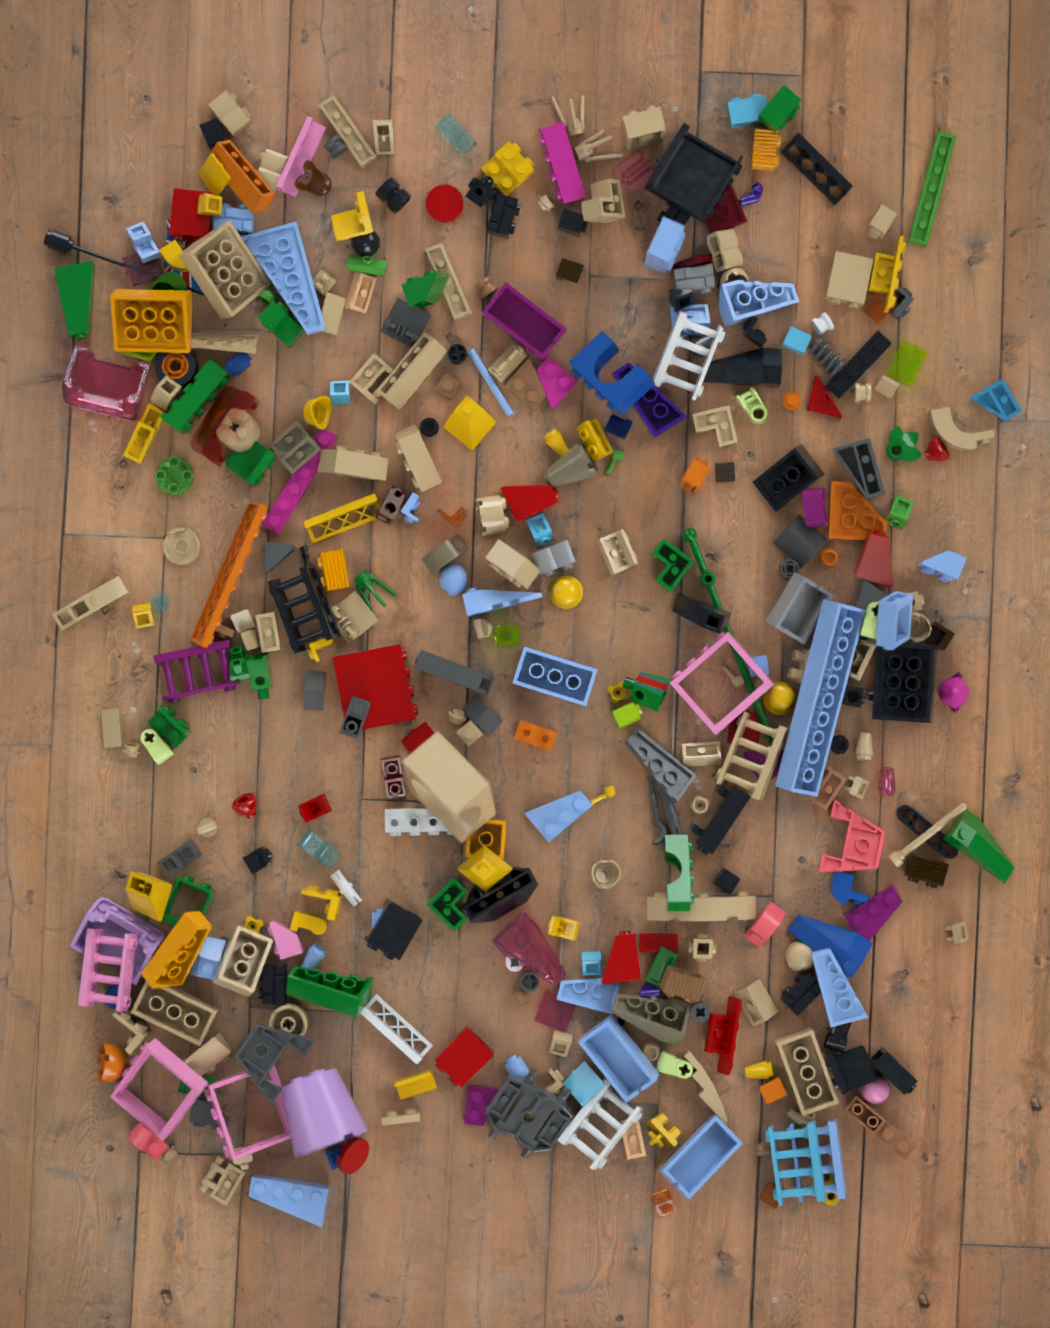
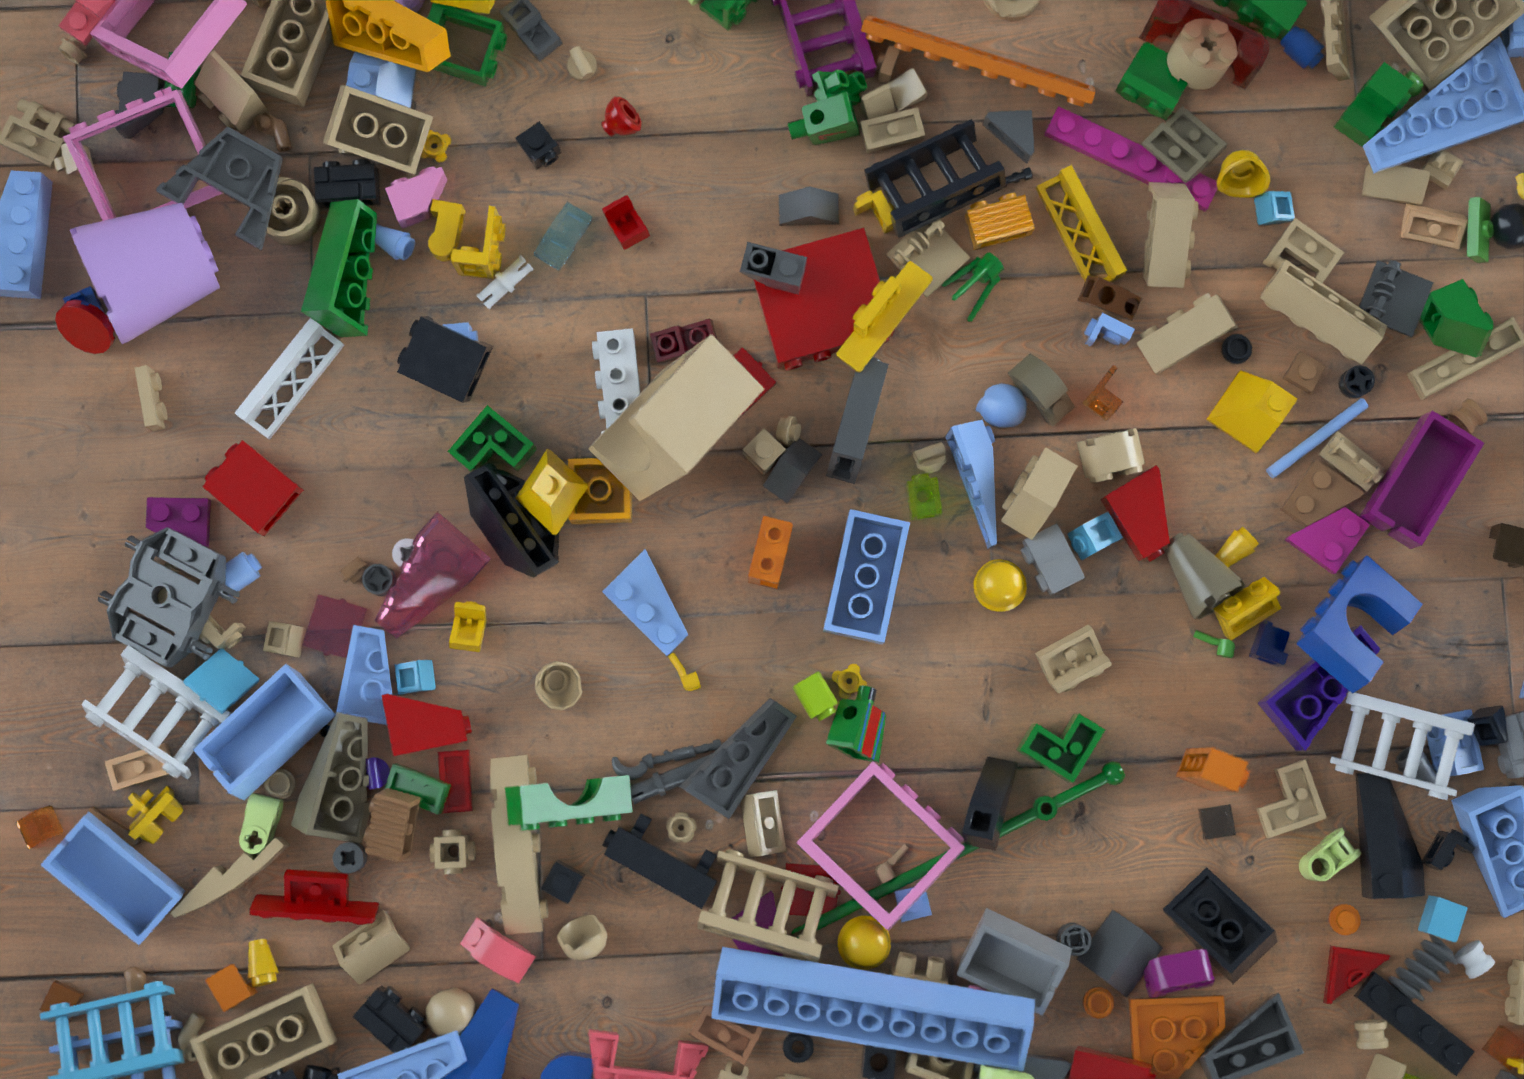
camera: 80 degrees right, 5 degrees down
(231, 1028) = (276, 128): none -> medium nougat arm
(393, 652) = (883, 314): none -> yellow bracket
(415, 1084) = (205, 416): yellow panel -> none
(761, 871) = (582, 938): none -> tan hair

